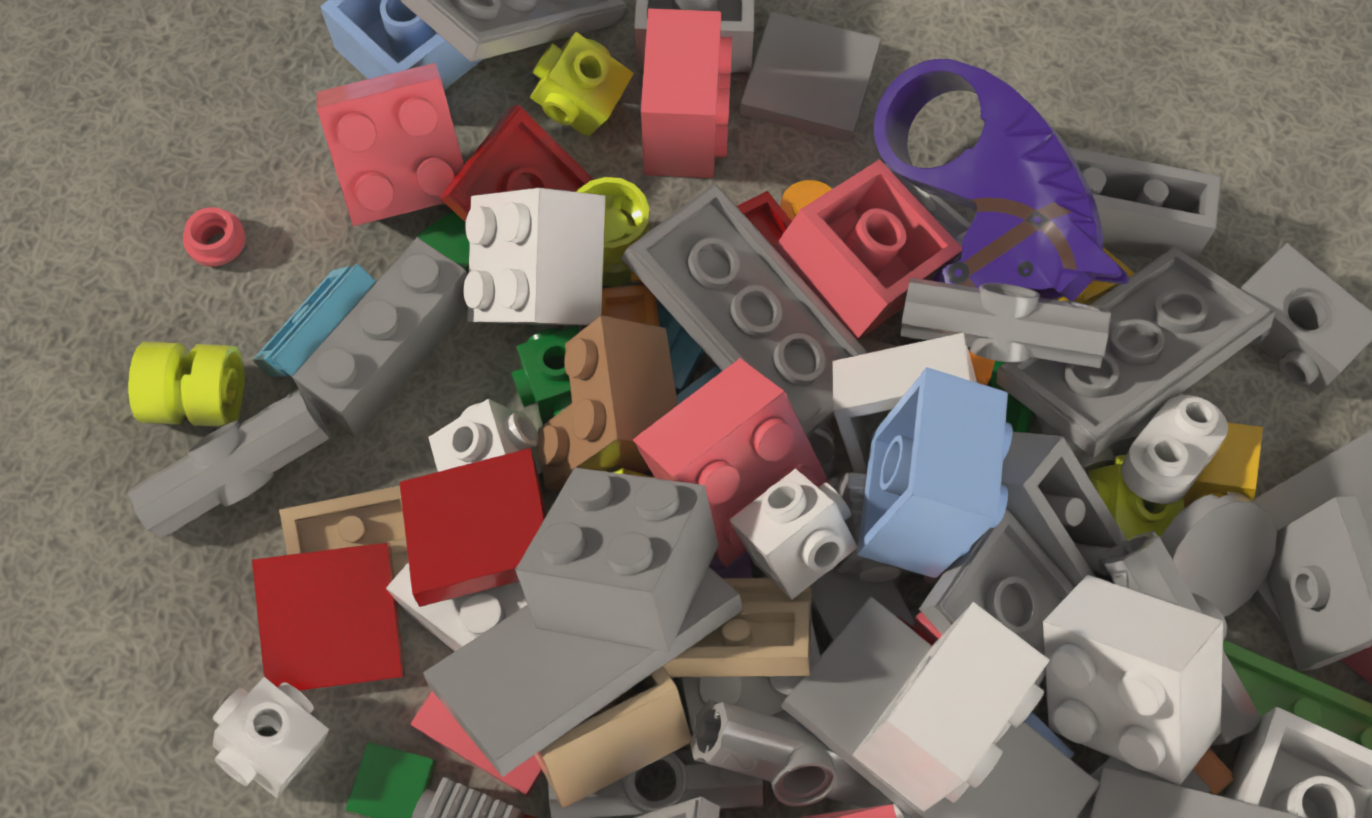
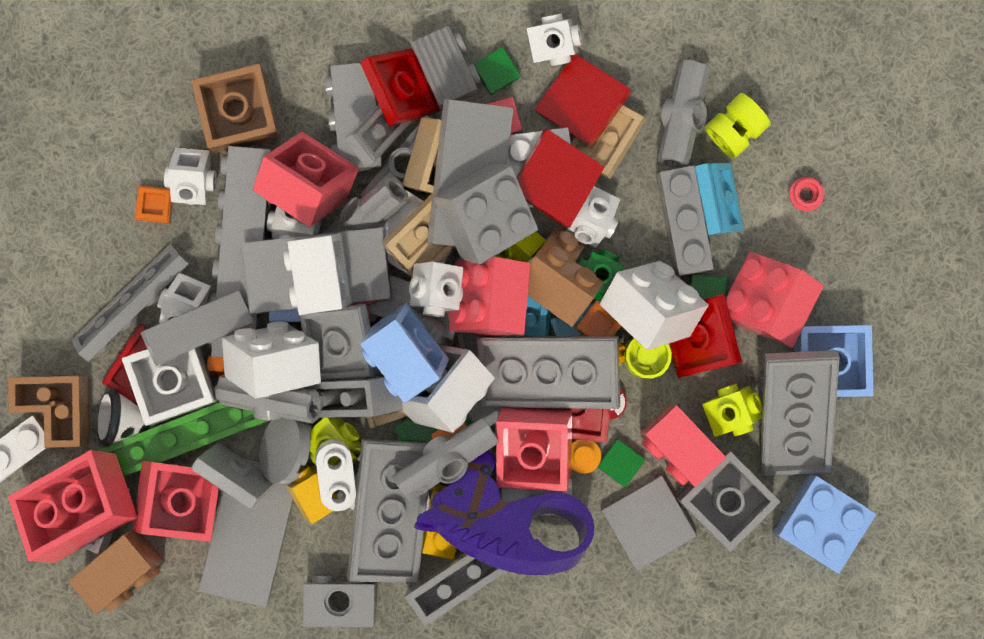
camera: 135 degrees right, 20 degrees up
(772, 161) = (621, 463): none -> green tile

